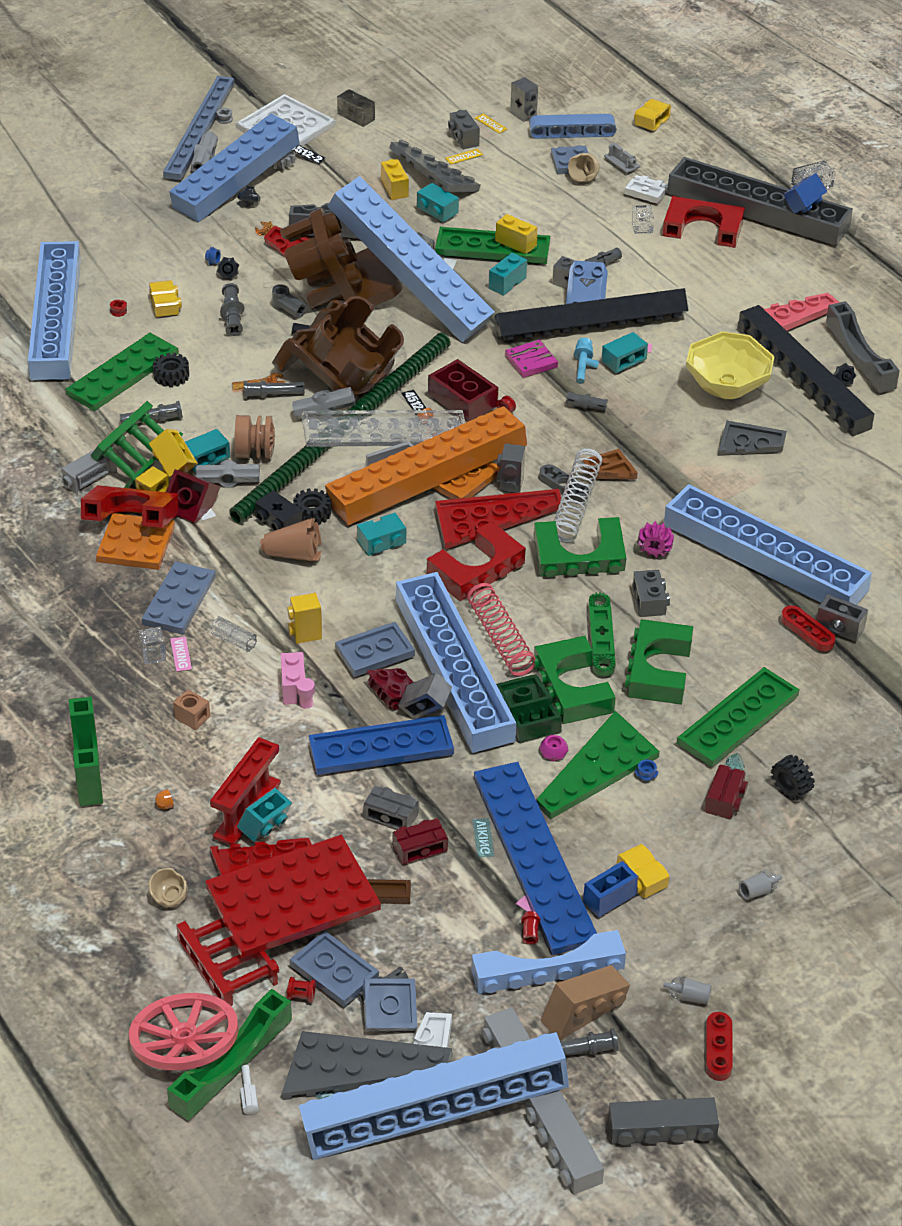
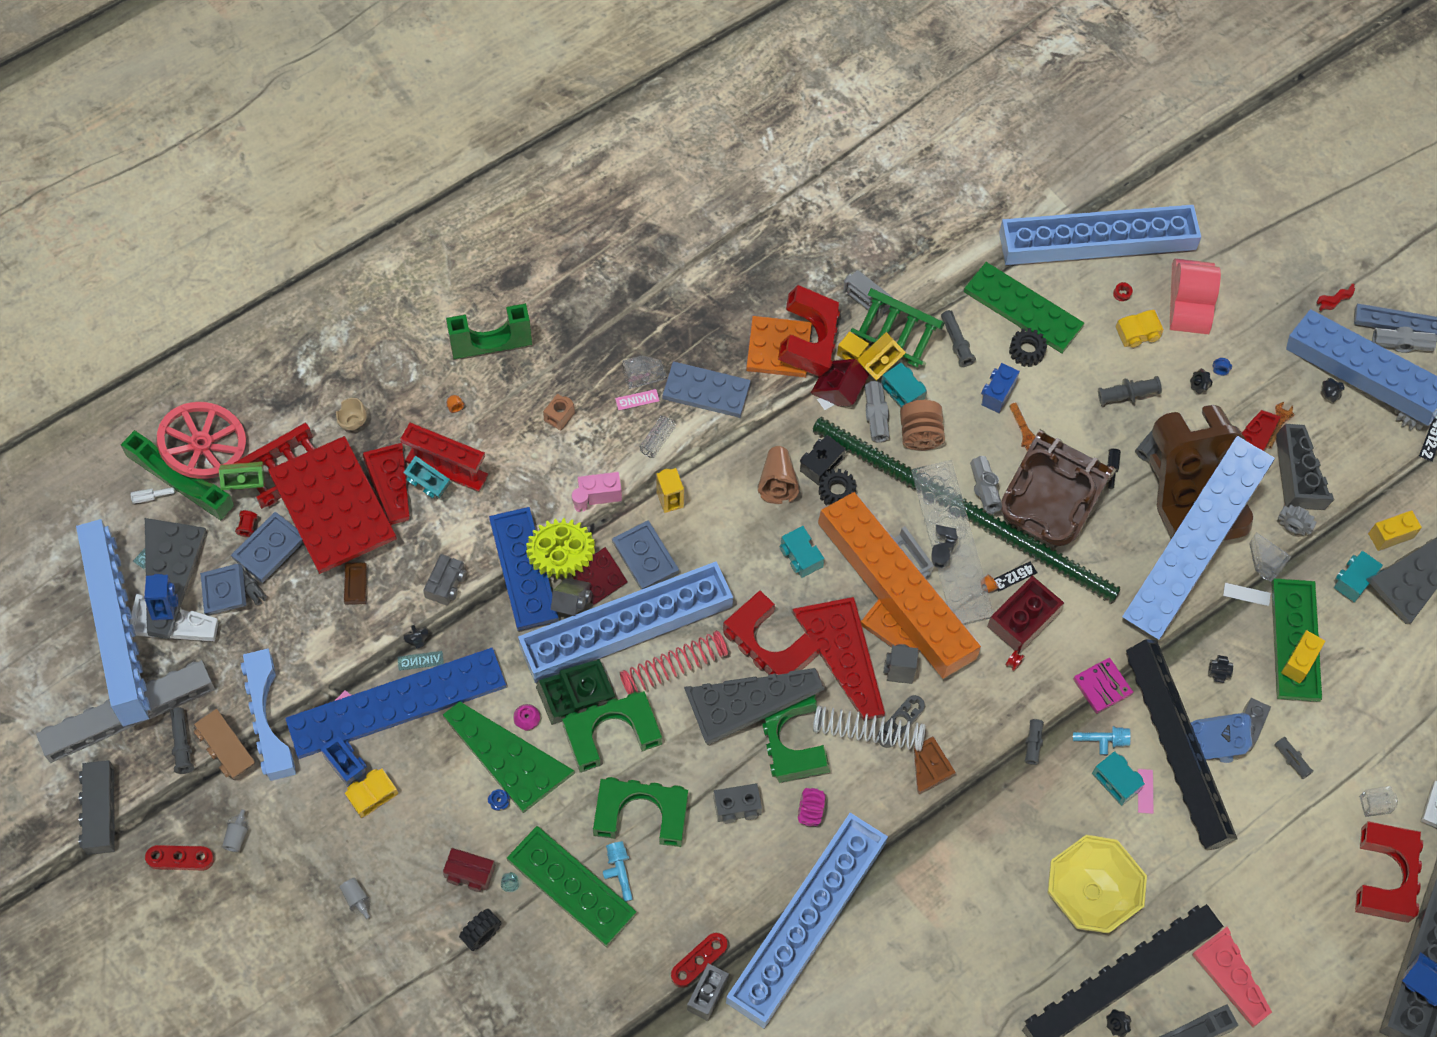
camera: 85 degrees right, 20 degrees up
(133, 257) = (1193, 295): none -> coral brick
(155, 190) = (1331, 302): none -> red hair
(215, 388) = (999, 388): none -> blue brick
(248, 975) = (241, 475): none -> bright green brick
(263, 389) = (1010, 431): dark grey pin -> none
(357, 714) = (560, 542): none -> neon yellow gear
(400, 428) = (941, 552): none -> black leg
(412, 1036) = (160, 597): none -> blue brick
(419, 841) = (406, 604): dark red brick -> none
(457, 833) = (416, 636): none -> black piece
(507, 273) = (1242, 654): teal brick -> none
(520, 286) = (1220, 668): none -> black gear
(530, 927) = (306, 700): red pin -> none
(549, 579) = (741, 702): none -> dark grey wing
(602, 645) = (662, 758): green piece -> none
(708, 679) = (617, 855): none -> medium azure piece
(749, 439) = (993, 911): dark grey wing -> none

